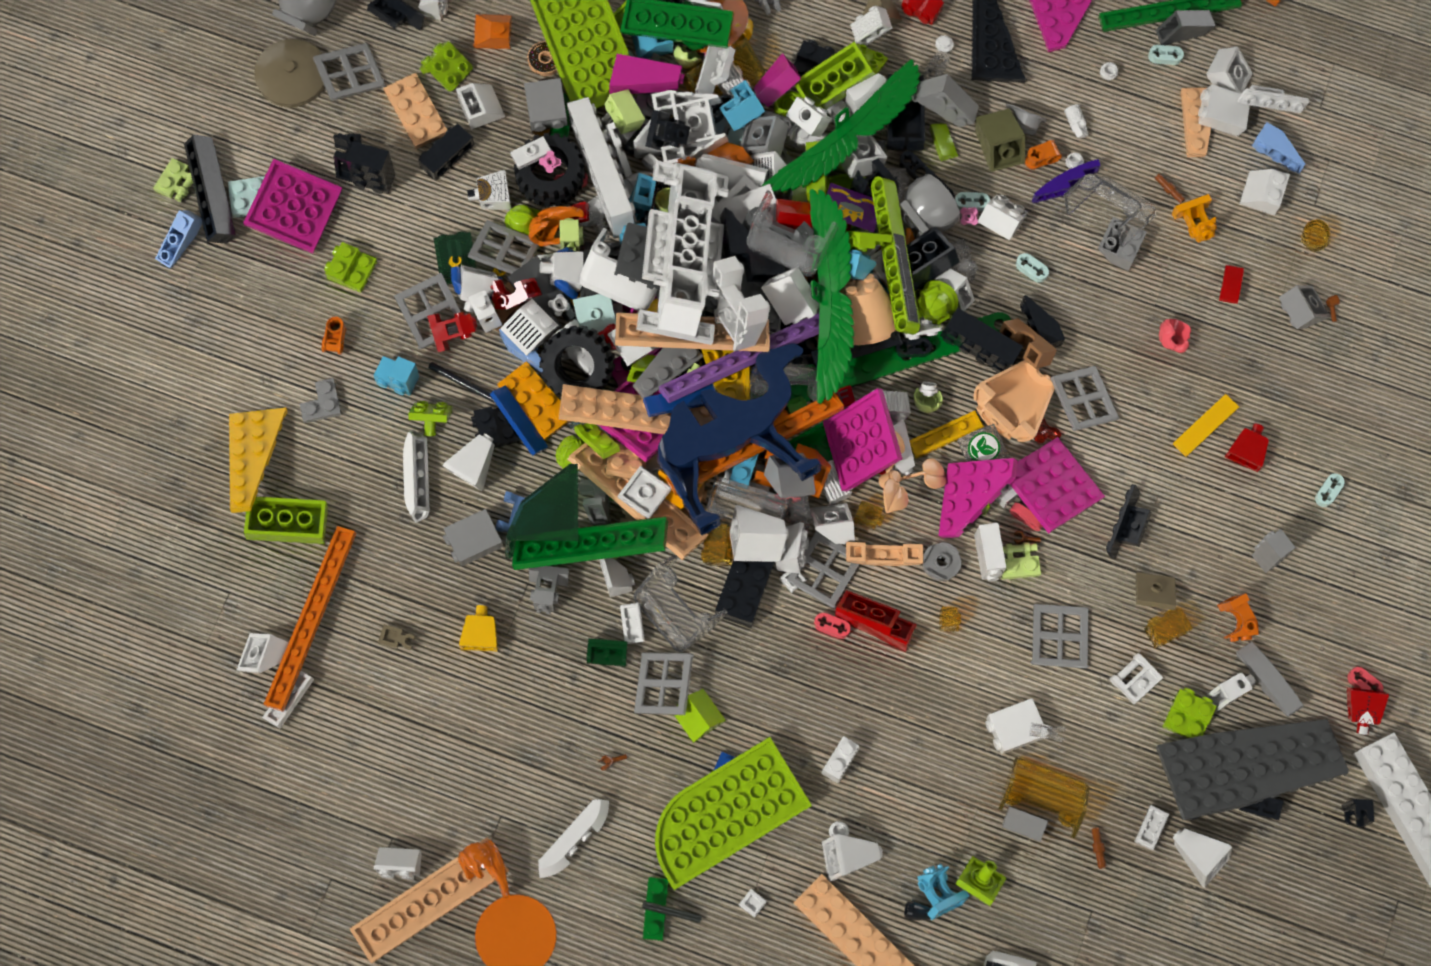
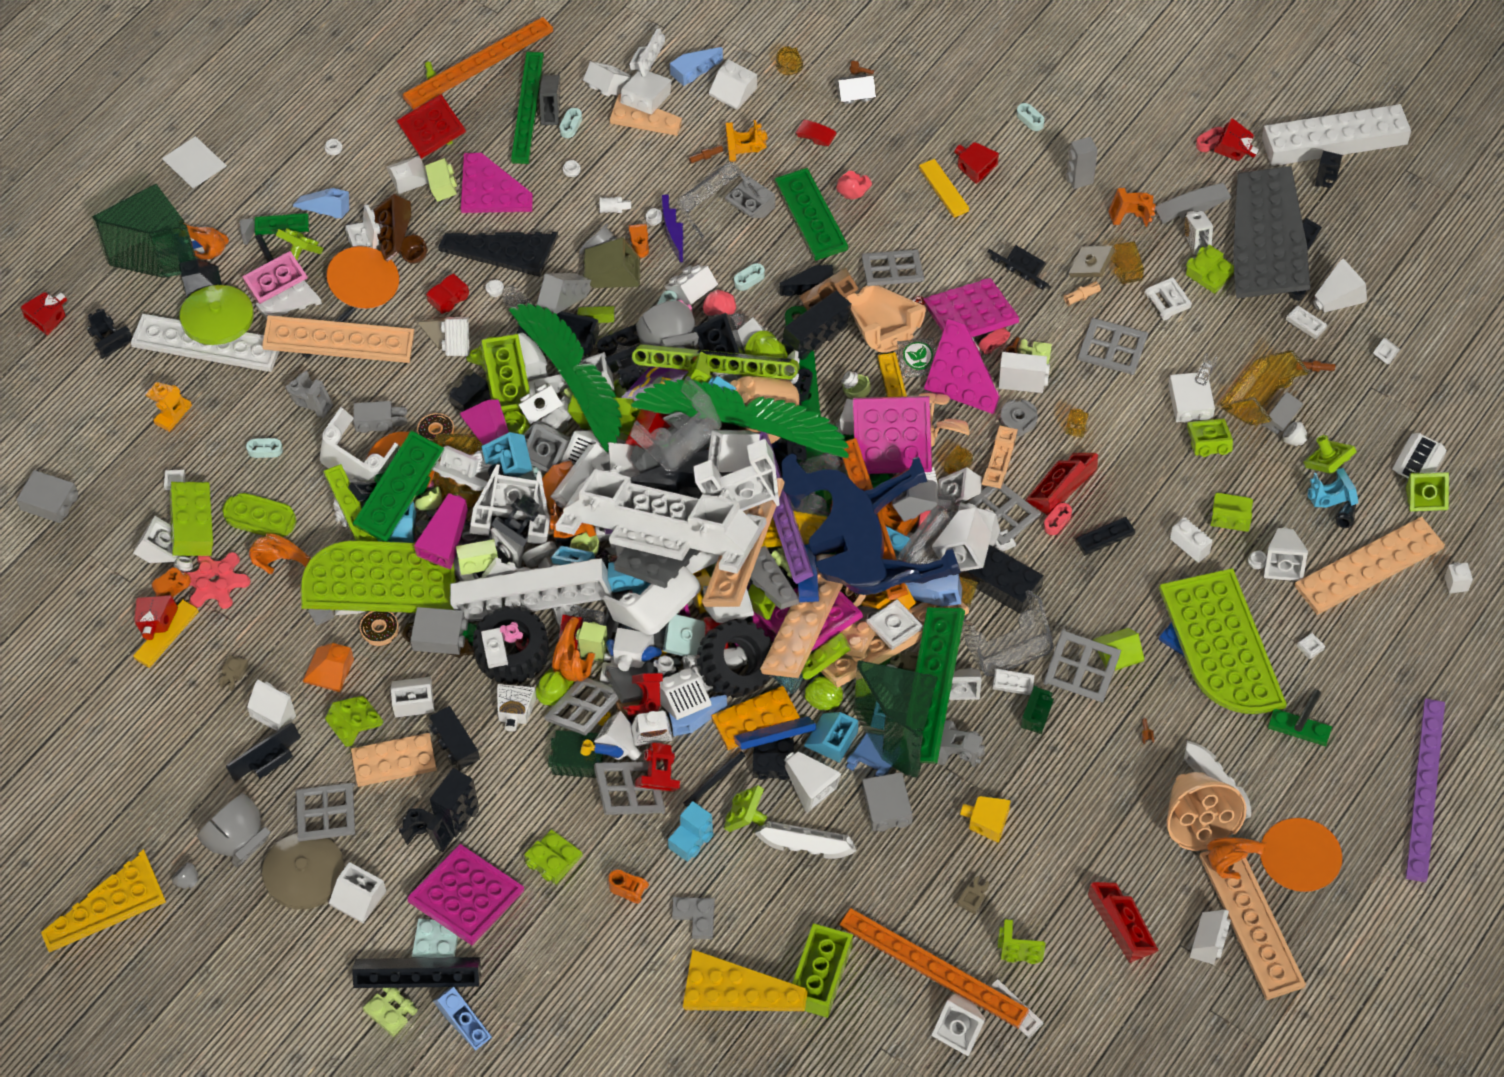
camera: 70 degrees left, 15 degrees down
(276, 119) = (357, 892): none -> white slope
(348, 675) = (1018, 950): none -> lime bracket
(400, 779) = (1122, 920): none -> red slope
(525, 825) = (1203, 811): none -> light nougat cone
(528, 471) = (833, 735): none -> medium azure slope
(691, 535) = (939, 592): none -> light blue slope
(768, 32) = (433, 421): none -> tile
(826, 676) = (1105, 536): none -> black tile
(888, 794) = (1232, 512): none -> lime bracket
(971, 754) = (1210, 437): none -> lime plate
(986, 249) = (719, 303): none -> coral hair
(1001, 840) = (1295, 434): none -> white cone
(1115, 591) = (1082, 293): none -> light nougat pin
(1127, 305) = (811, 214): none -> green plate
(1139, 918) = (1386, 351): none -> white plate

